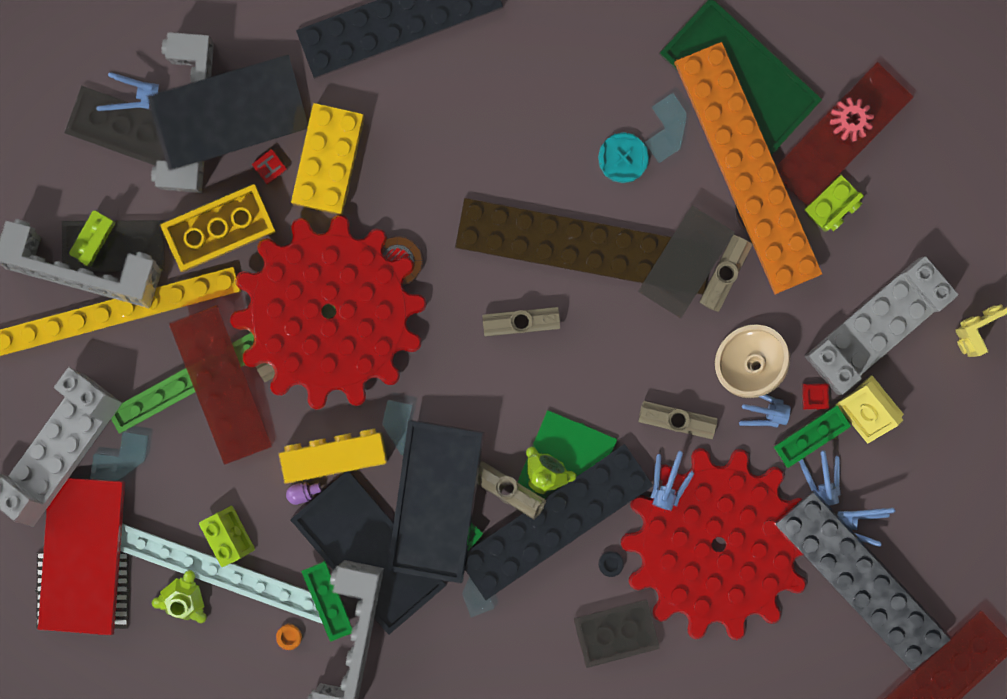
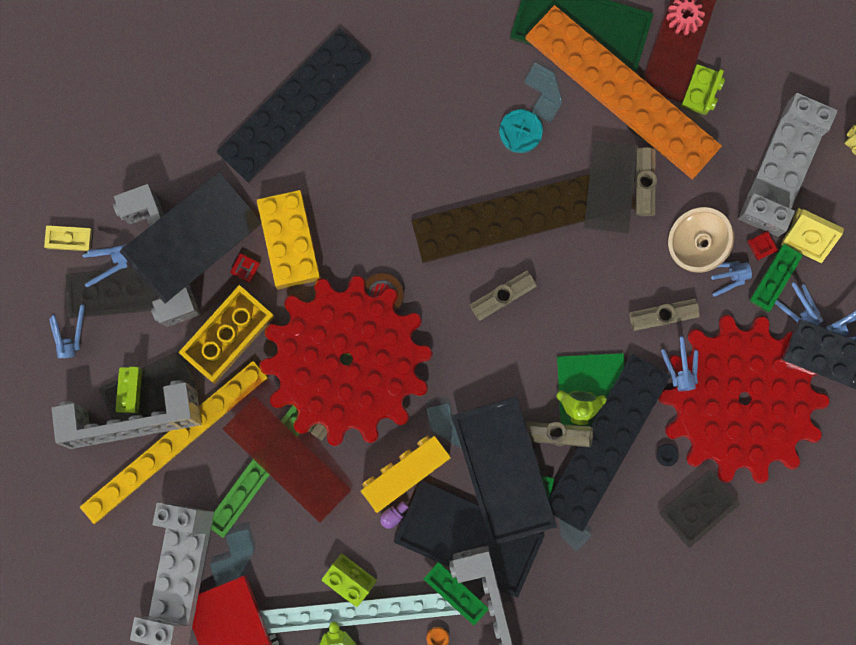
camera: 35 degrees left, 5 degrees down
(47, 161) = (65, 347): none -> medium blue plant
(101, 49) = (68, 238): none -> light yellow plate

